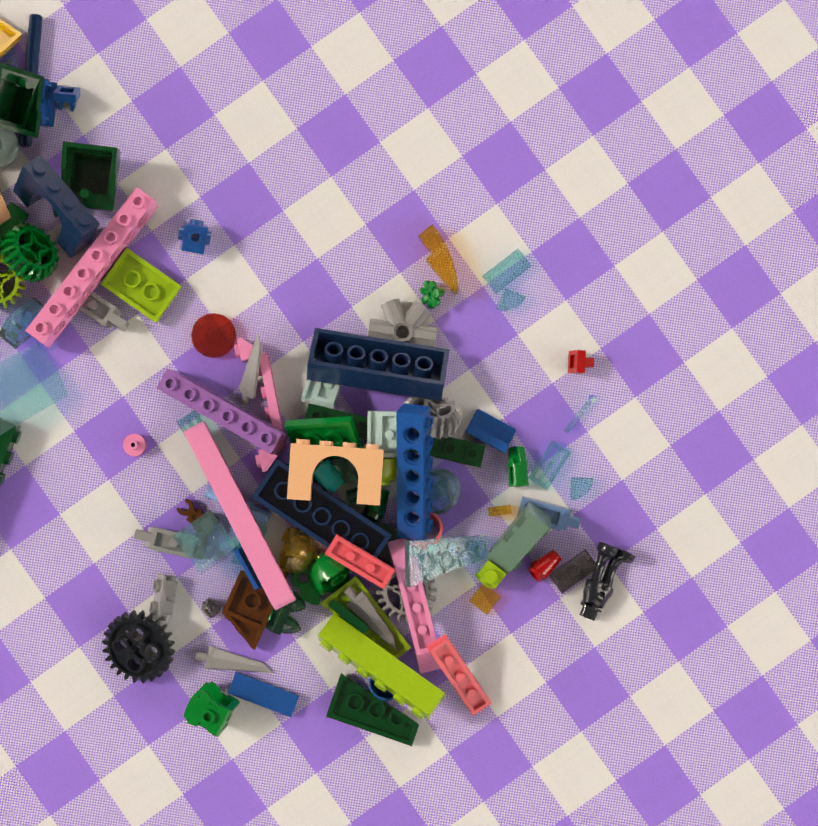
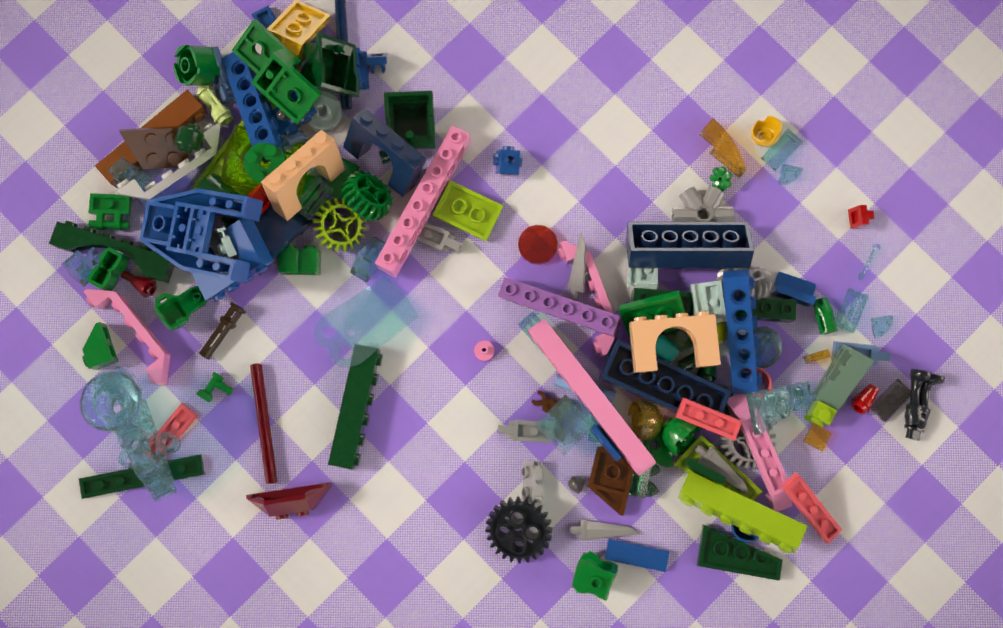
camera: 10 degrees left, 5 degrees down
(491, 249) = (766, 132): none -> yellow hair

